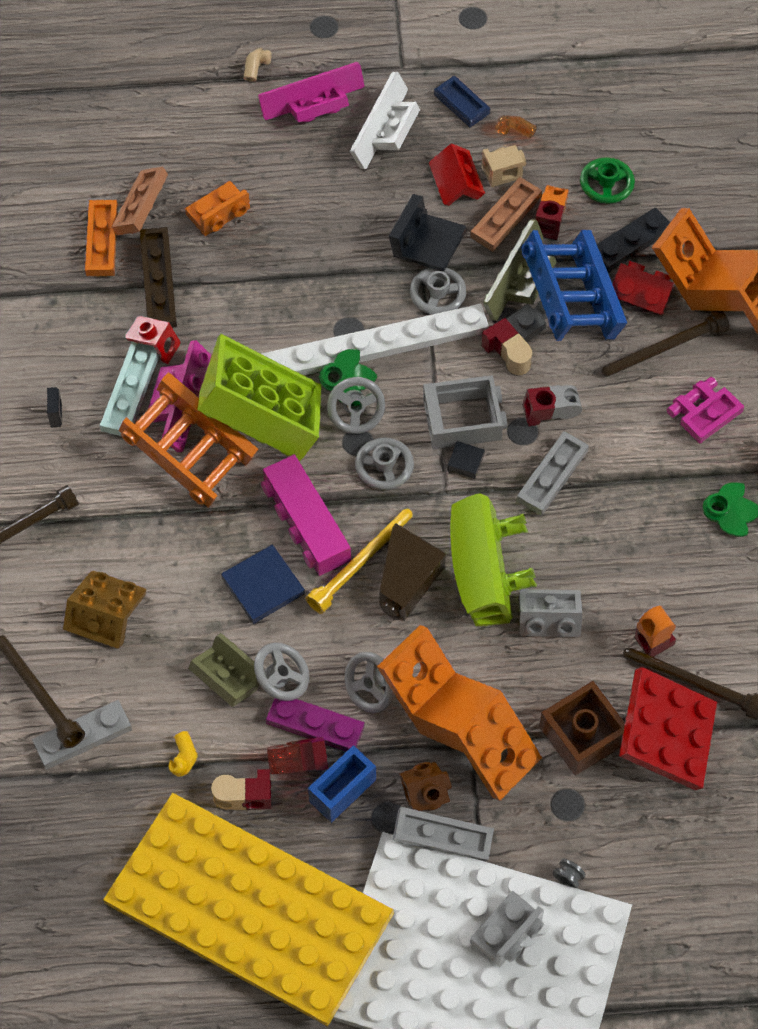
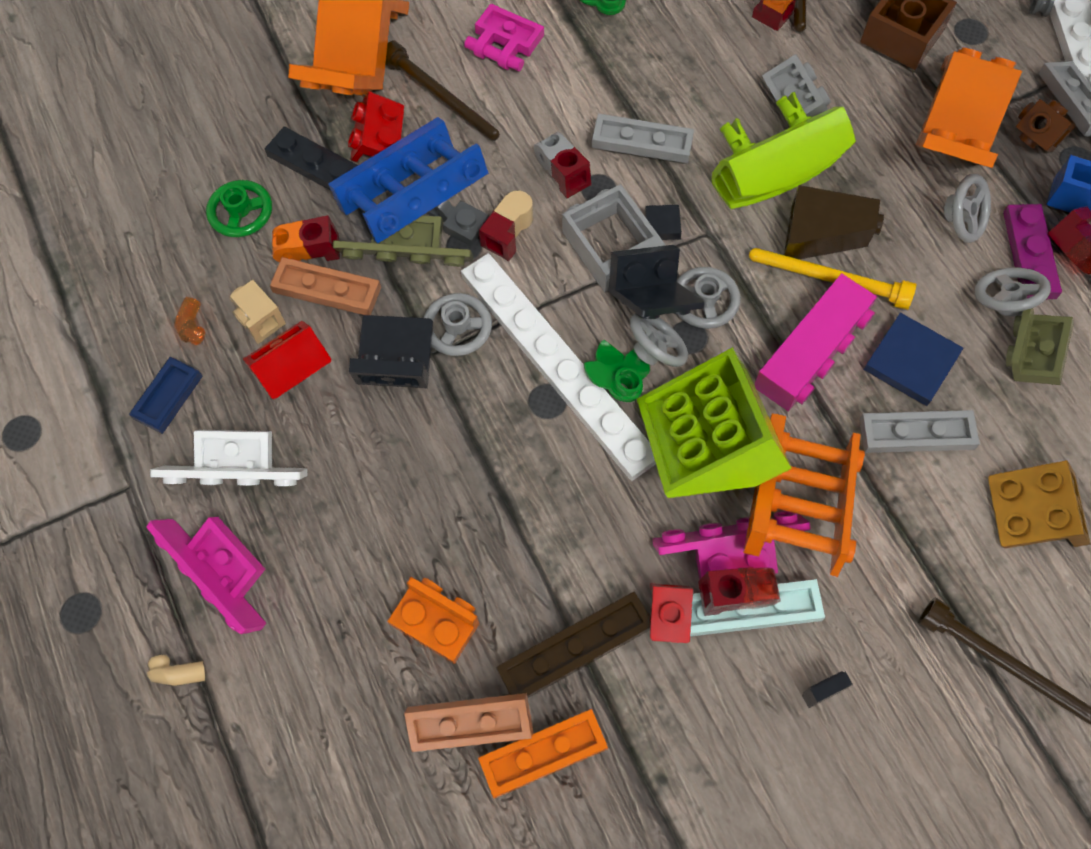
camera: 110 degrees left, 5 degrees up
(141, 371) = (738, 589): none -> leg
(201, 554) = (919, 431): none -> light grey plate
(399, 413) = (648, 282): none -> black bracket

